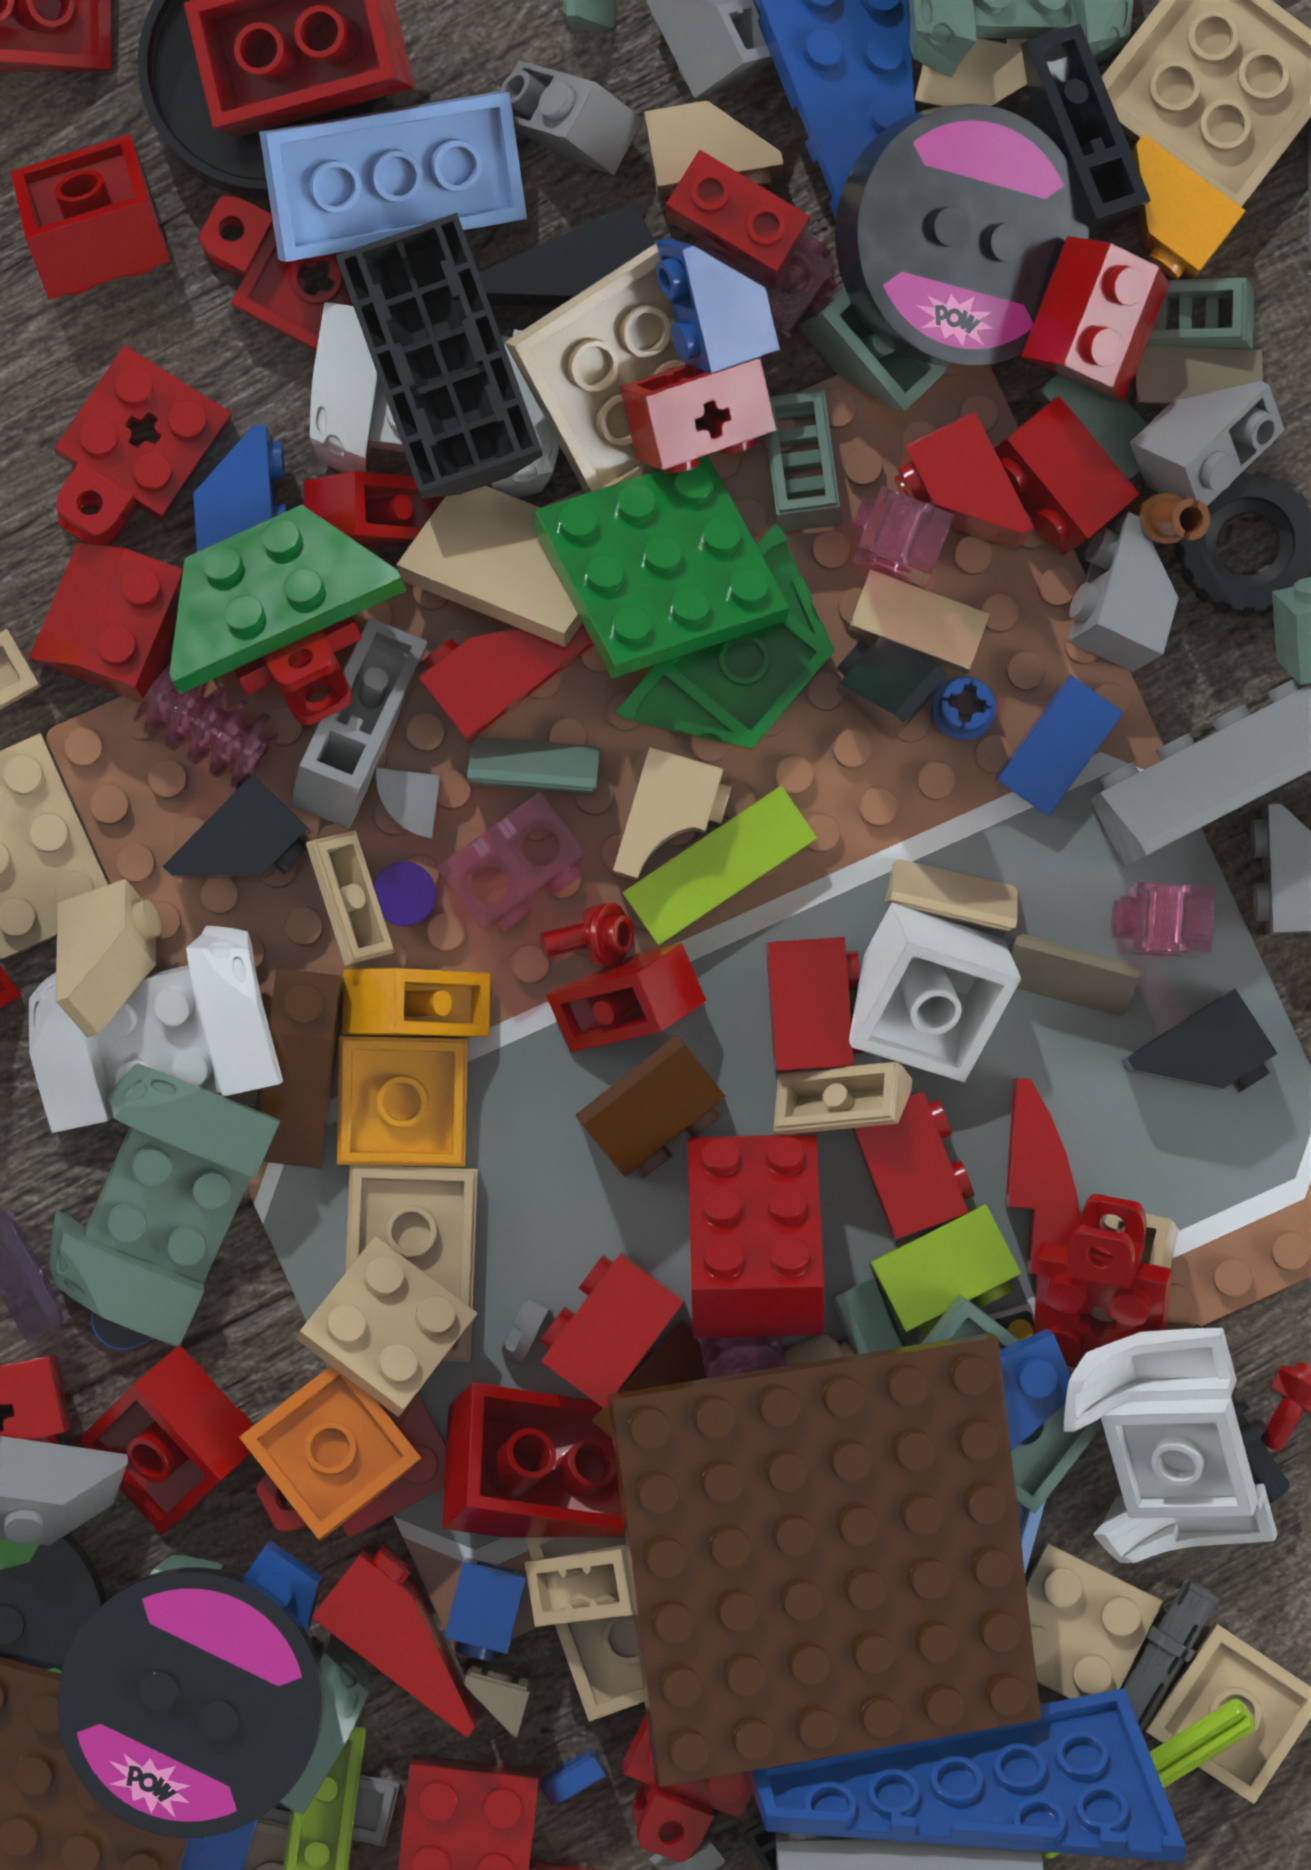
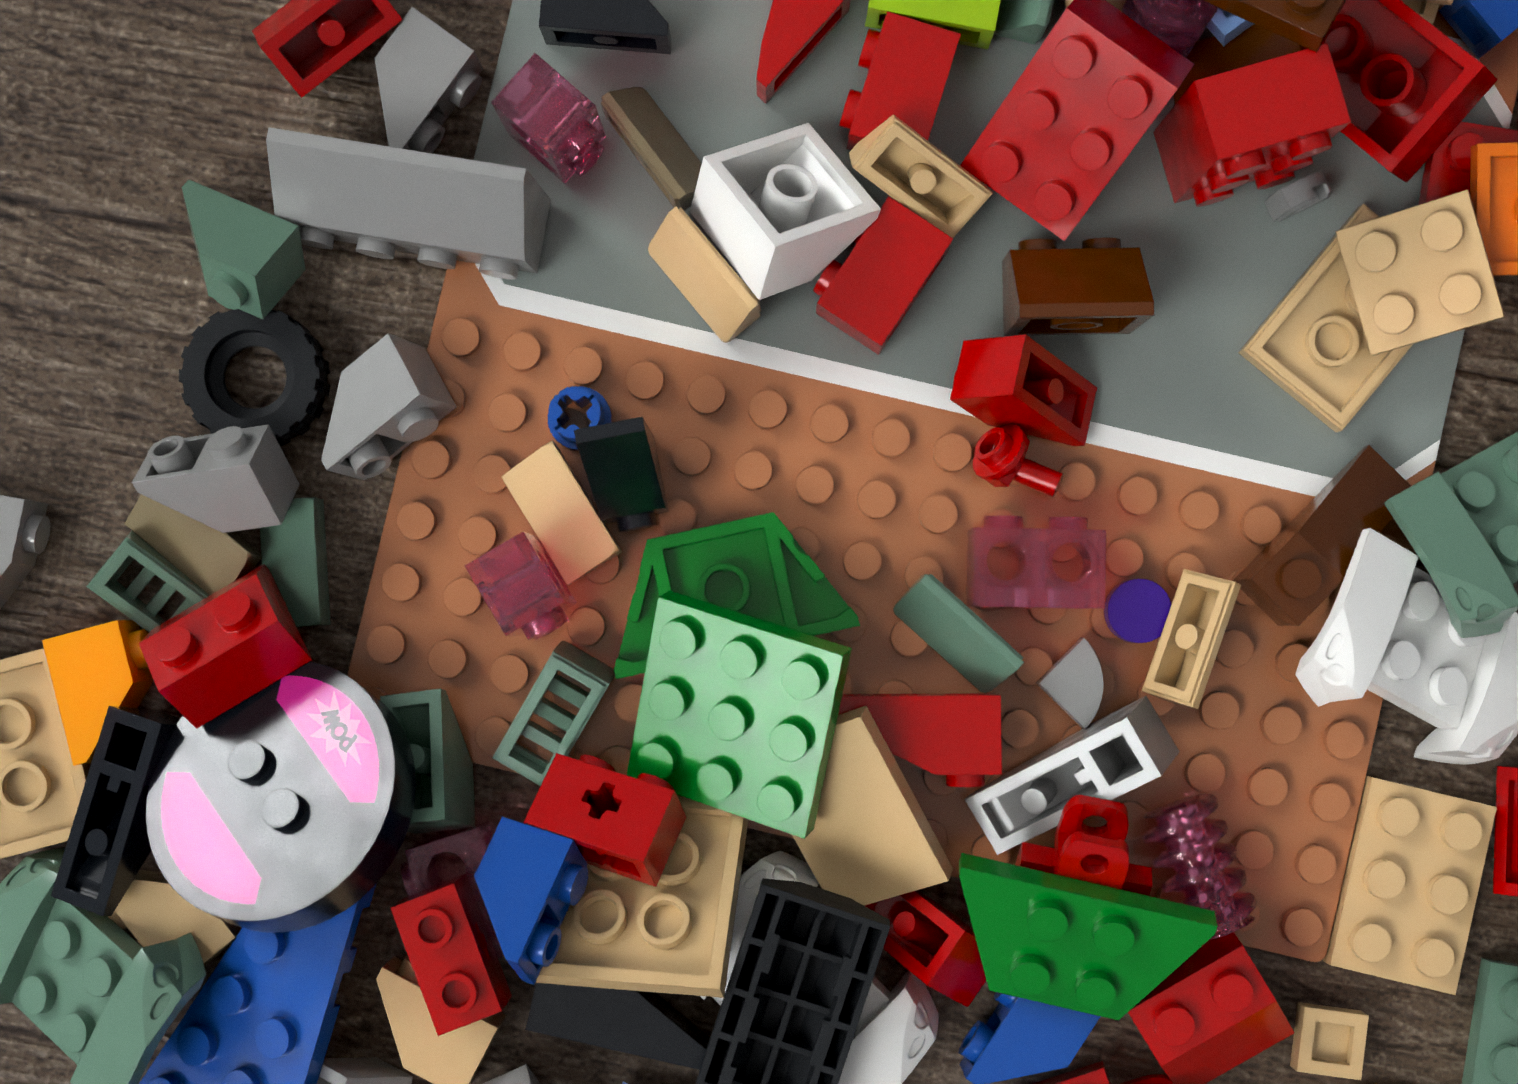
camera: 140 degrees left, 0 degrees up
(103, 952) = (1427, 746): tan slope -> none
(243, 839) = (1236, 753): black slope -> none
(402, 1101) = (1262, 449): light orange tile -> none
(416, 1002) = (1198, 514): light orange slope -> none
(670, 800) = (871, 520): tan arch -> none
(719, 865) = (870, 441): lime tile -> none
(964, 476) = (432, 593): red slope -> none
(1059, 745) = (527, 330): blue tile -> none
(1063, 476) = (358, 541): red brick -> none
(1169, 518) = (296, 437): dark orange pin -> none

